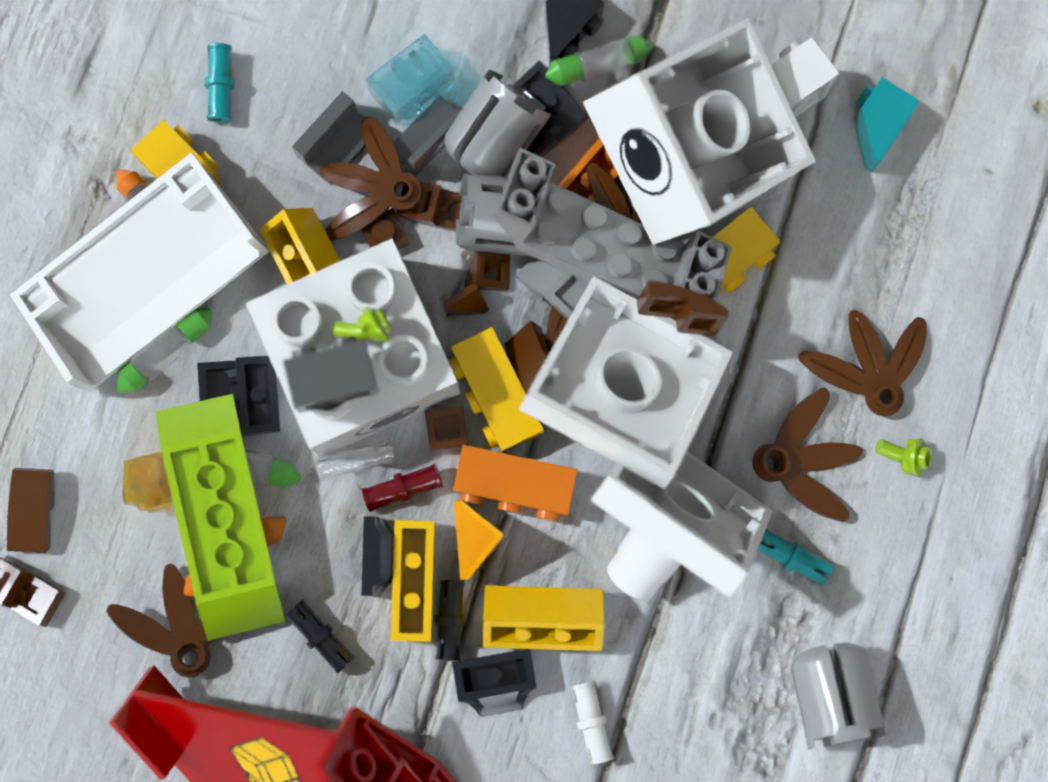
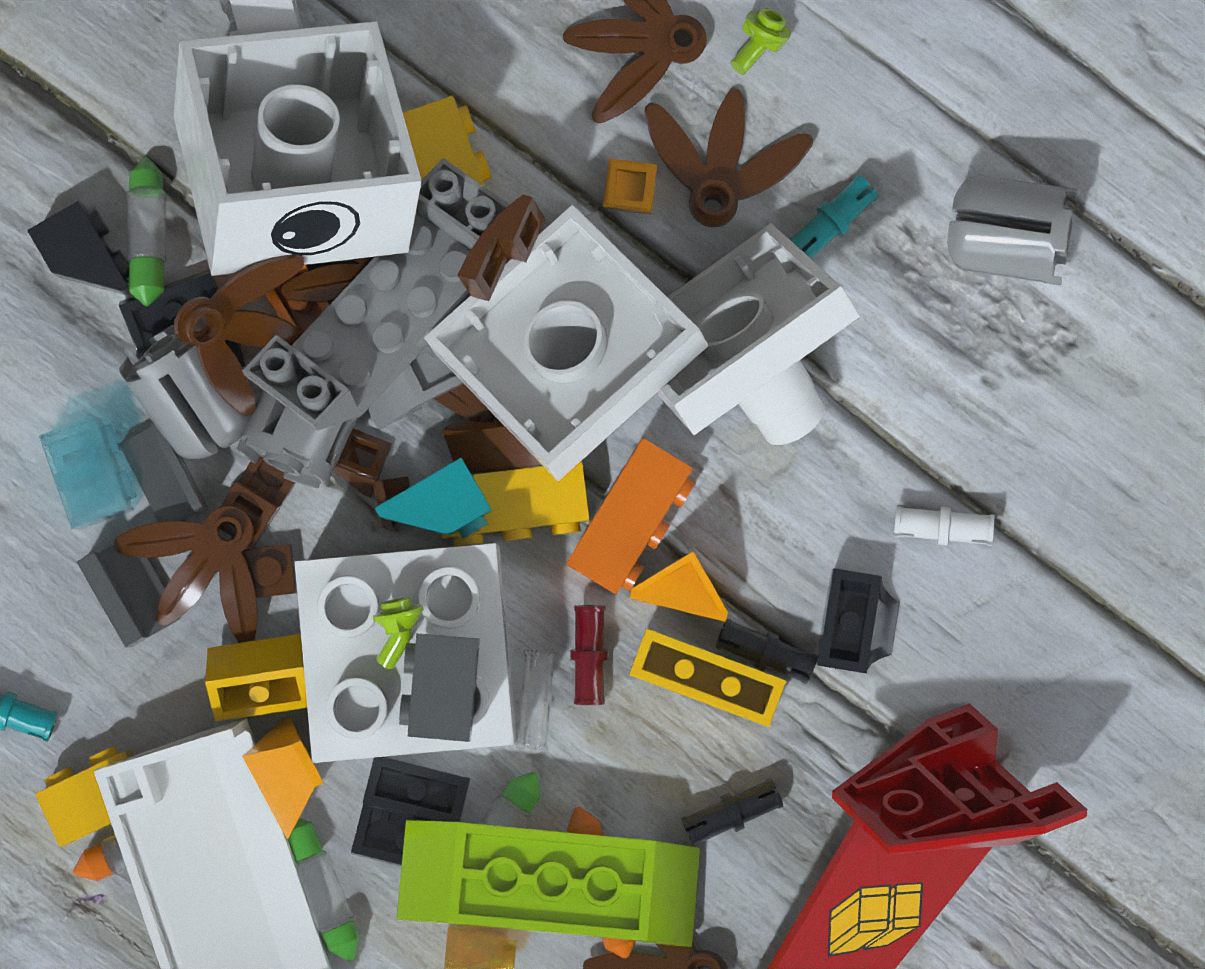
camera: 70 degrees left, 5 degrees up
(235, 288) = (283, 773): none -> light orange slope
(376, 556) = (662, 710): black slope -> none
(446, 428) = (536, 577): reddish brown plate -> none
(475, 335) = (441, 503): none -> teal slope
(543, 618) = (803, 539): yellow brick -> none
(551, 122) = (212, 321): none -> reddish brown plant
(760, 397) = (629, 186): none -> light orange tile

